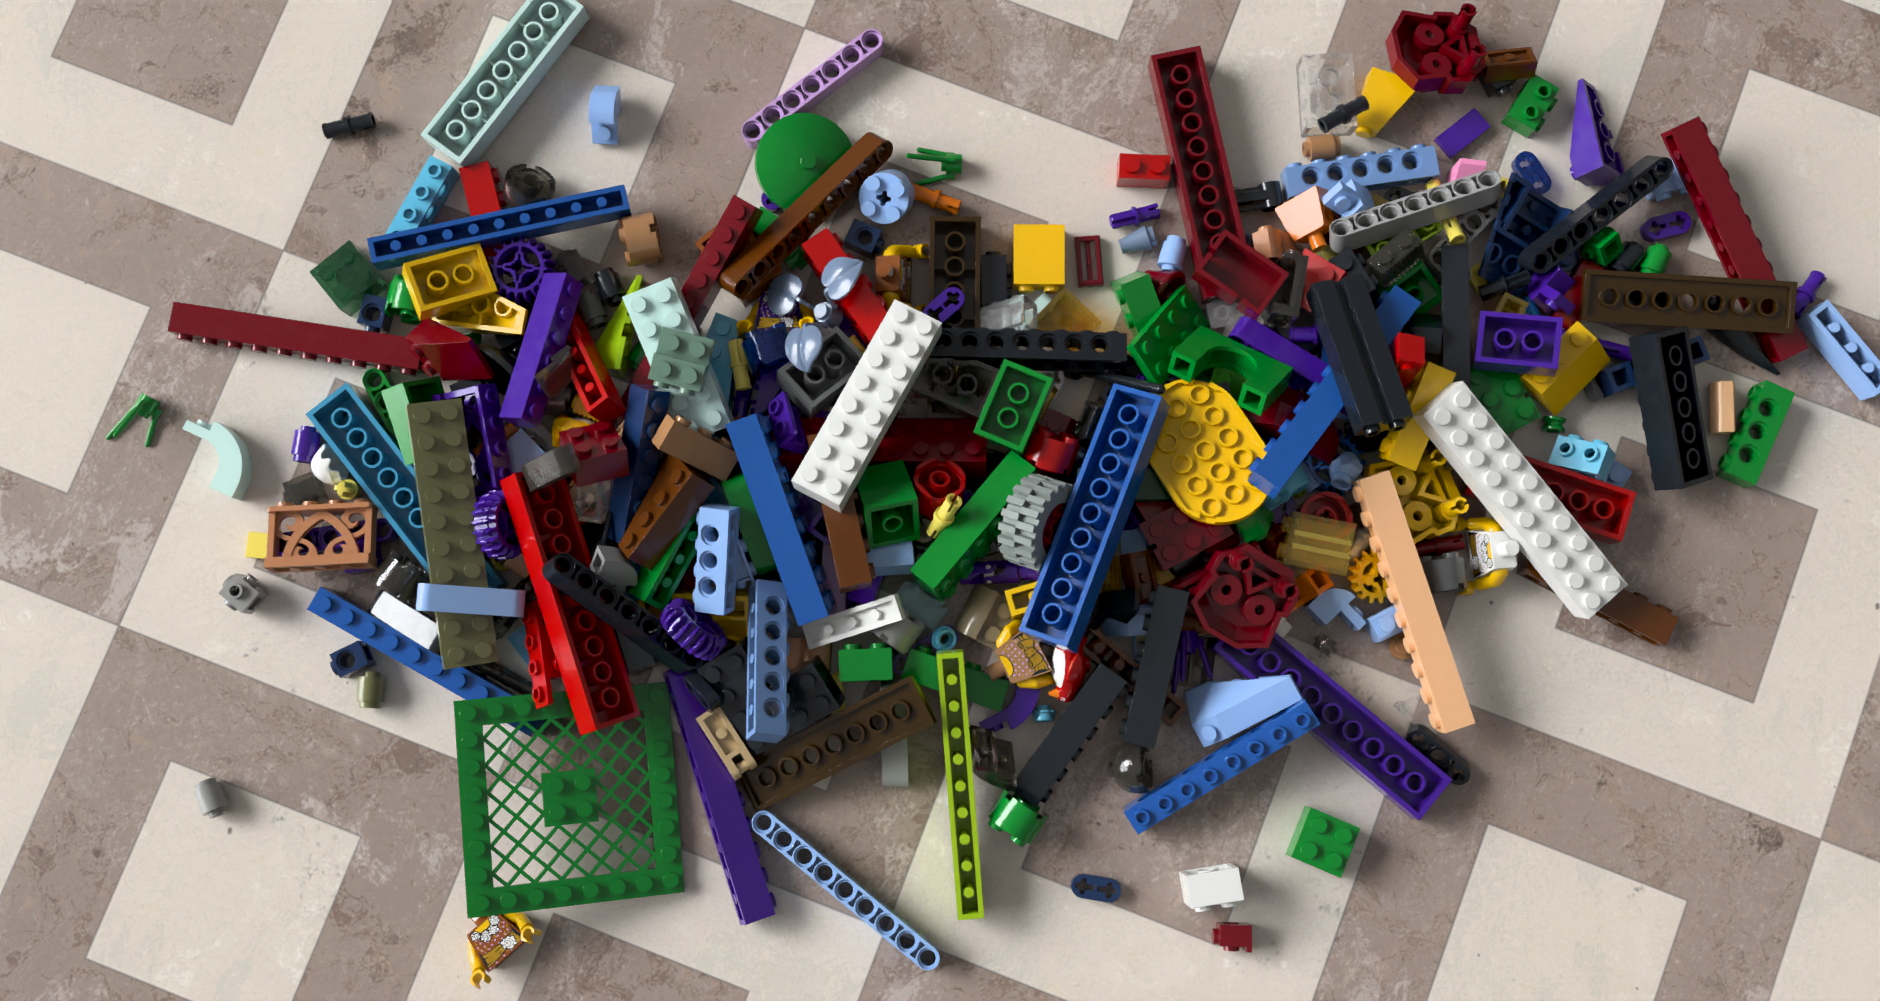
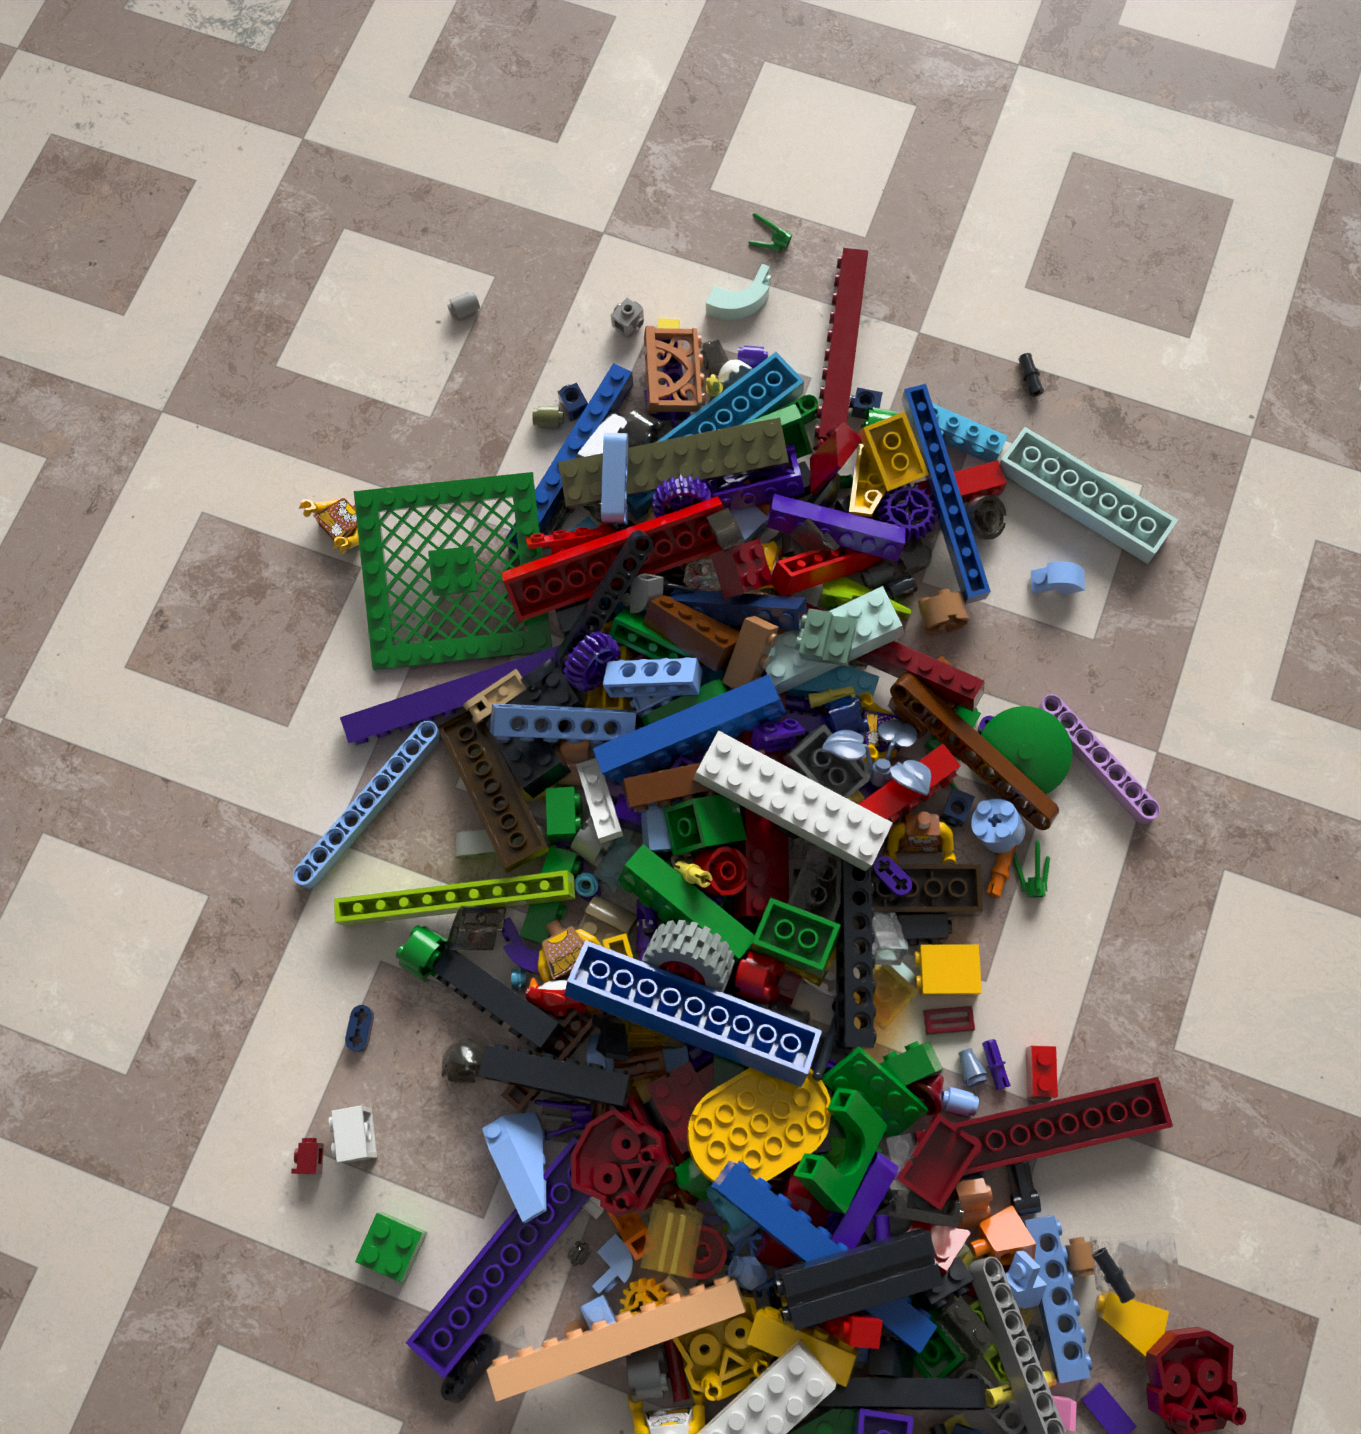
camera: 90 degrees right, 10 degrees down
(348, 276) = (894, 376): clear green brick -> none
(1221, 765) = (464, 1145): blue brick -> none

